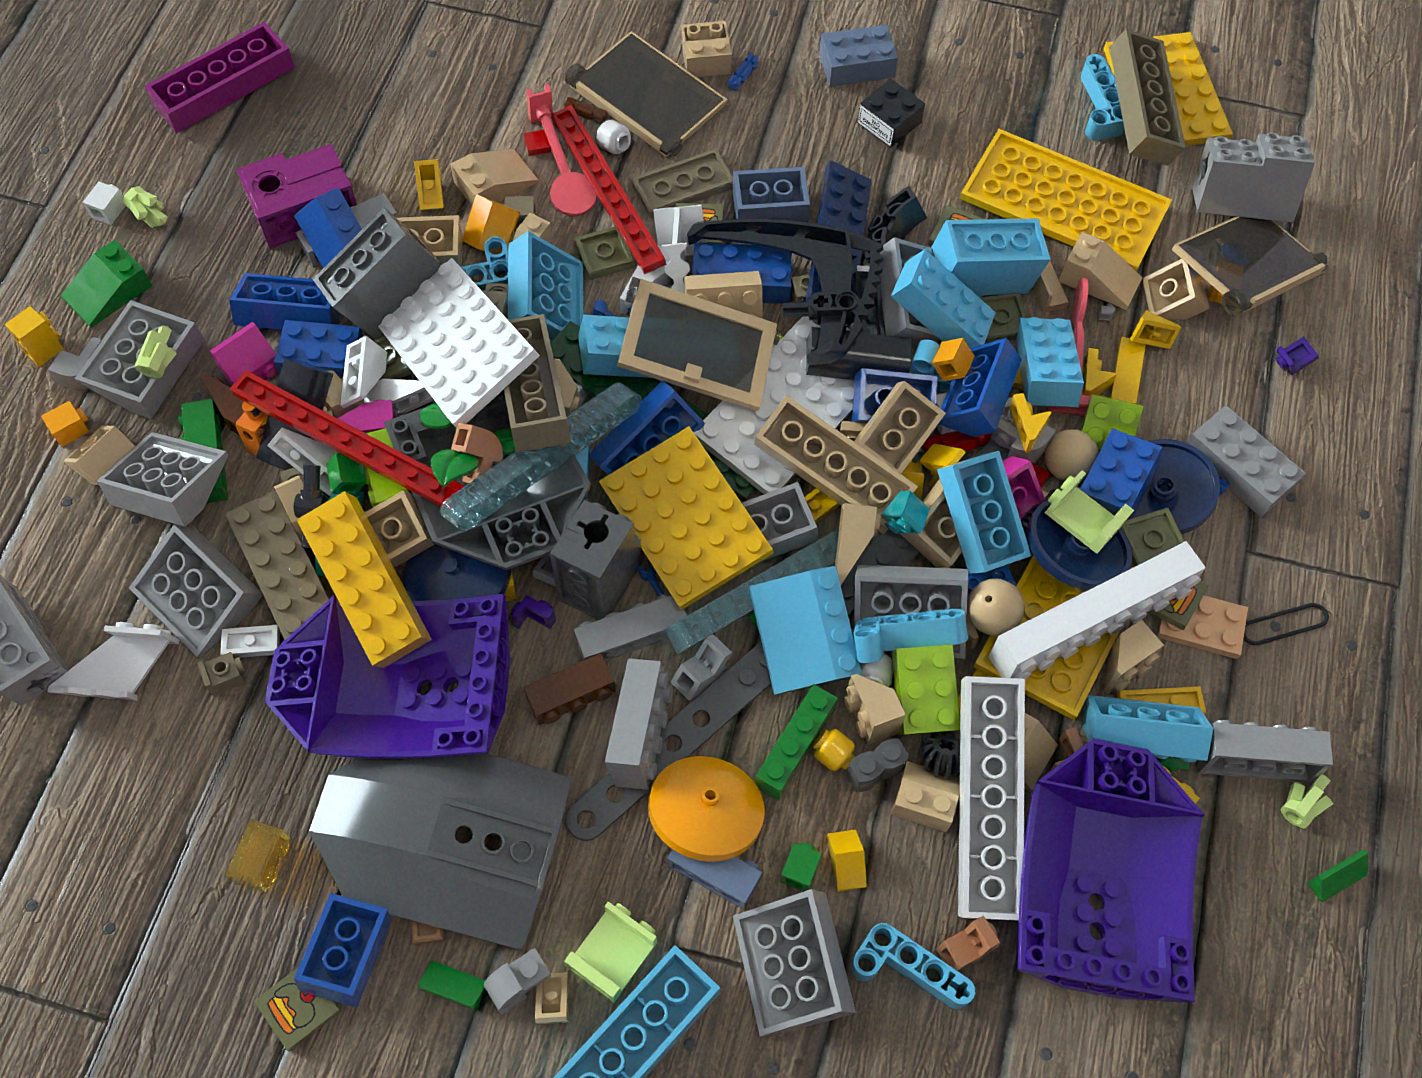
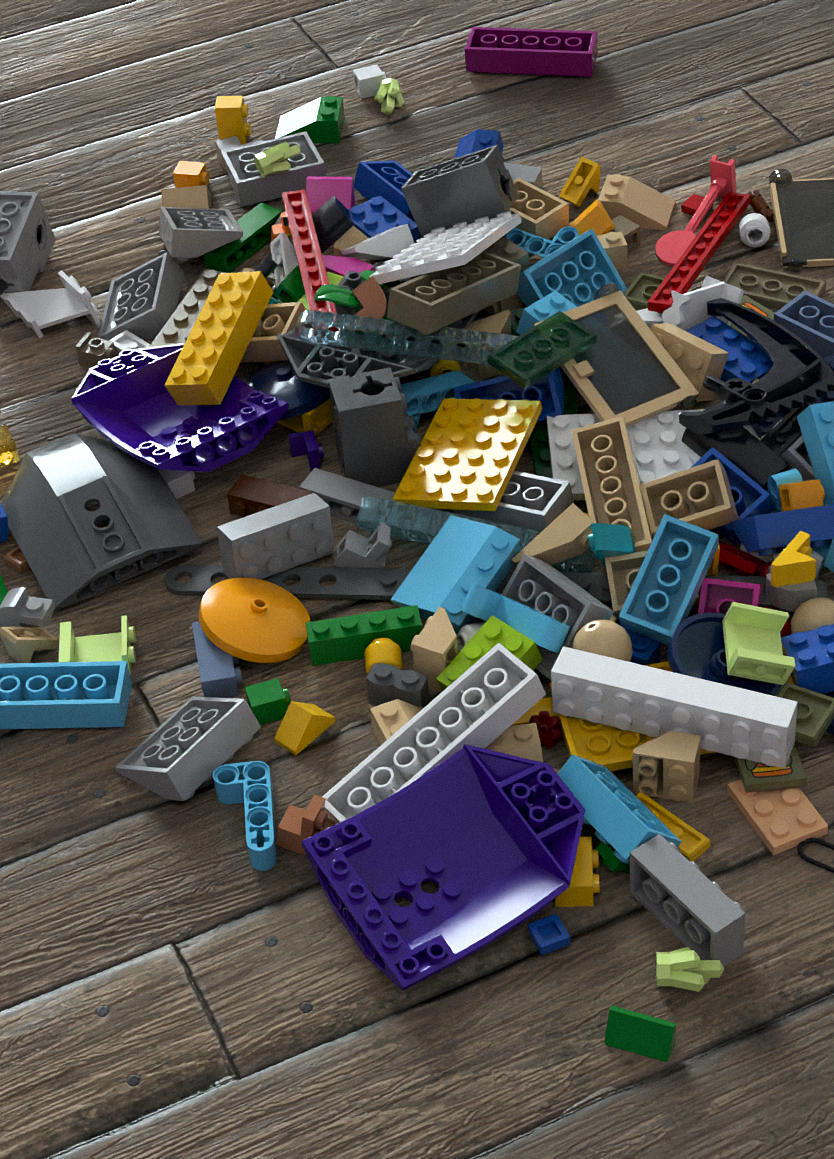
camera: 55 degrees right, 20 degrees down
(284, 187) = (469, 113): magenta piece -> none
(657, 382) = (542, 349): none -> clear green tile
(1209, 859) = (549, 934): none -> blue plate

